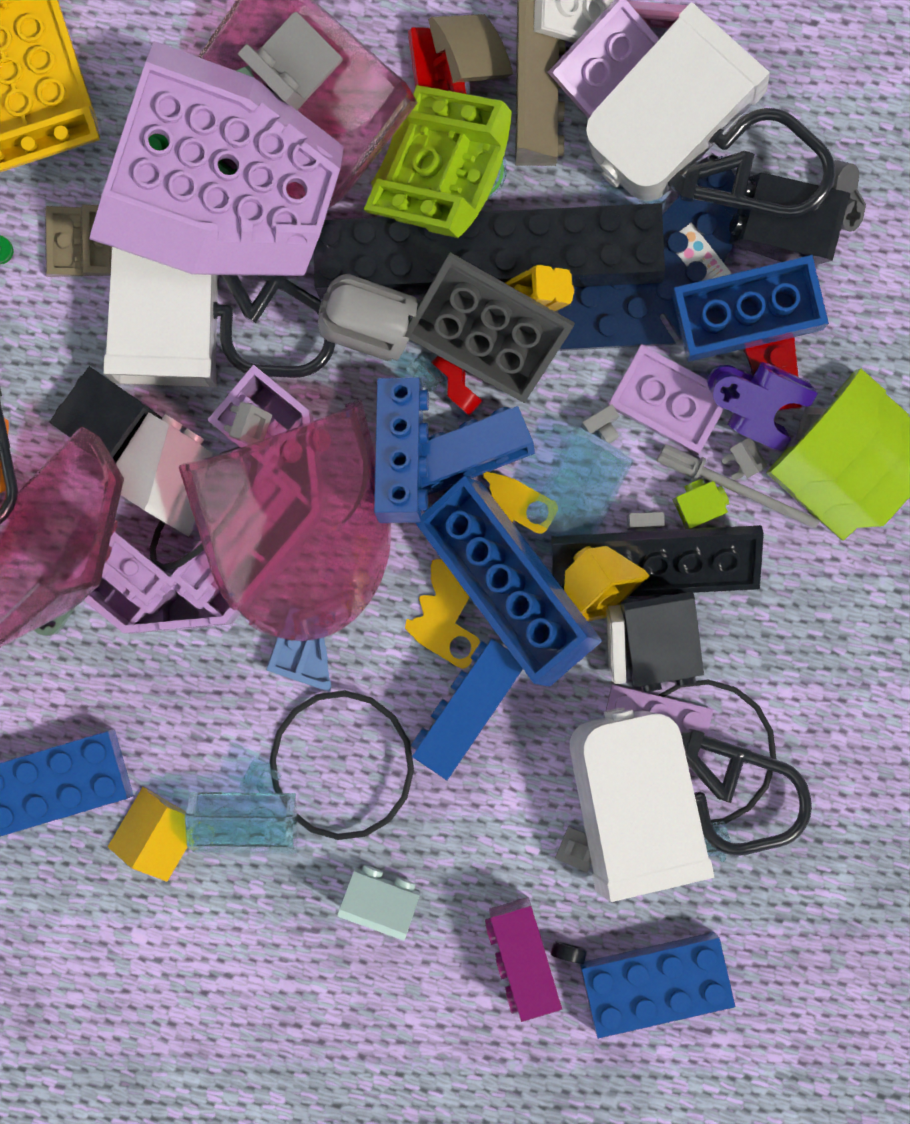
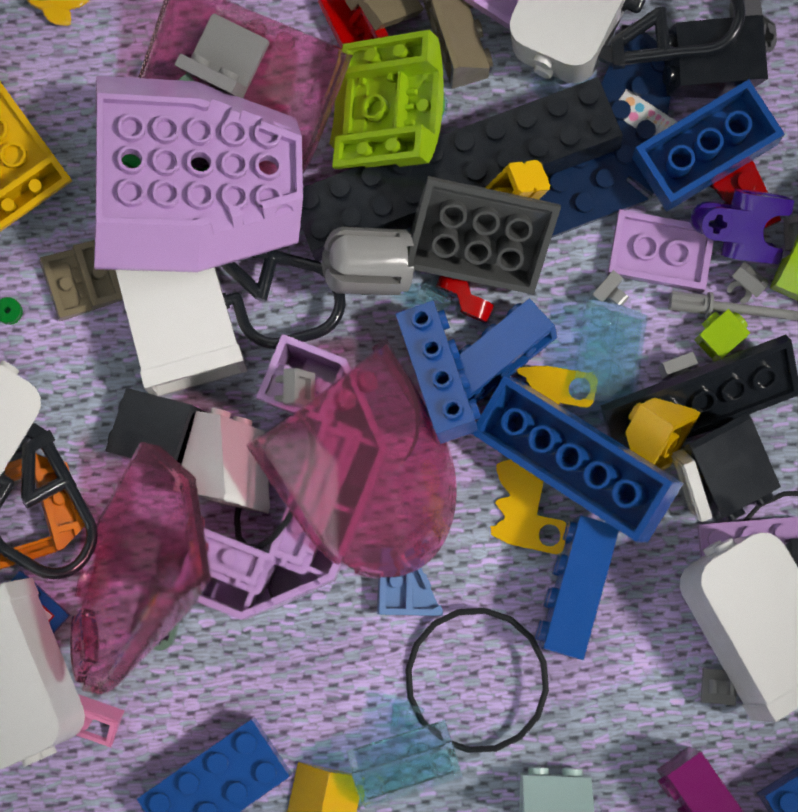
camera: 20 degrees left, 5 degrees down
(568, 952) = (745, 785): black tile -> none

